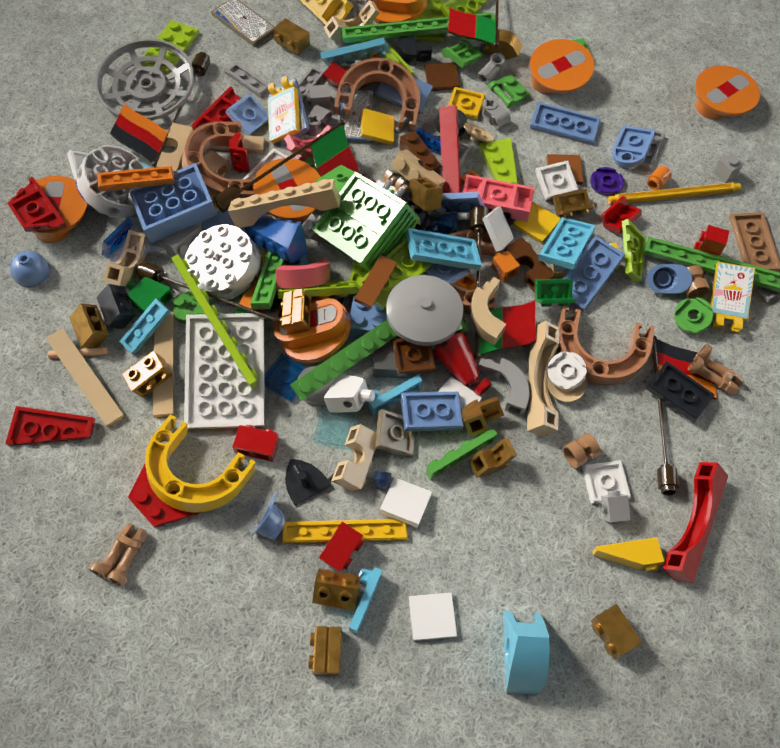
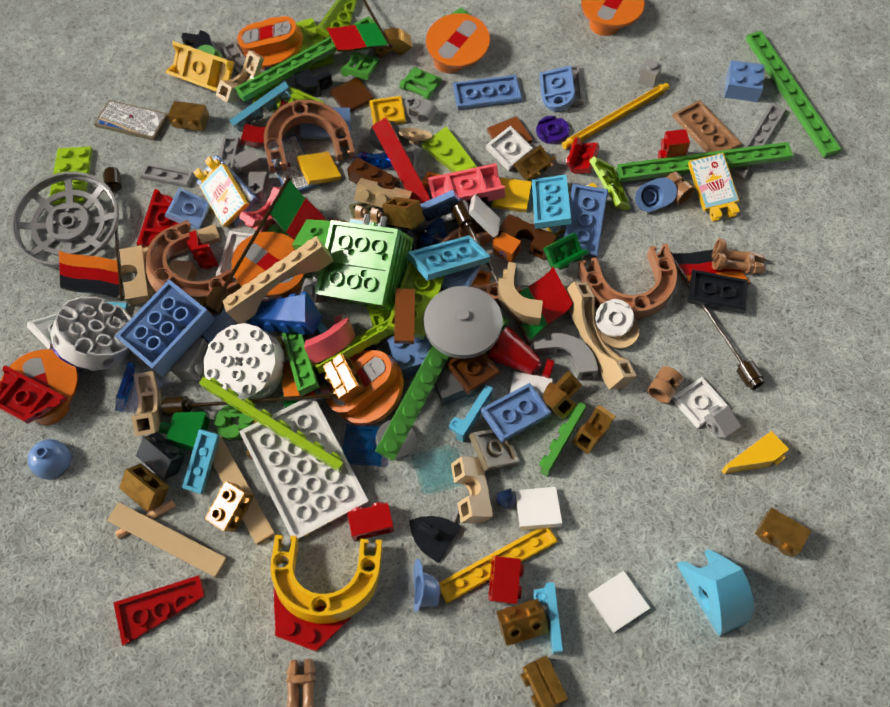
camera: 20 degrees left, 0 degrees up
(135, 178) = (117, 321): orange tile -> none
(348, 394) = (433, 433): white torso -> none
(492, 68) = (395, 68): light grey piece -> none
(659, 178) = (596, 107): orange brick -> none
(685, 557) = (802, 432): red arch -> none
(693, 326) = (697, 227): bright green plate -> none

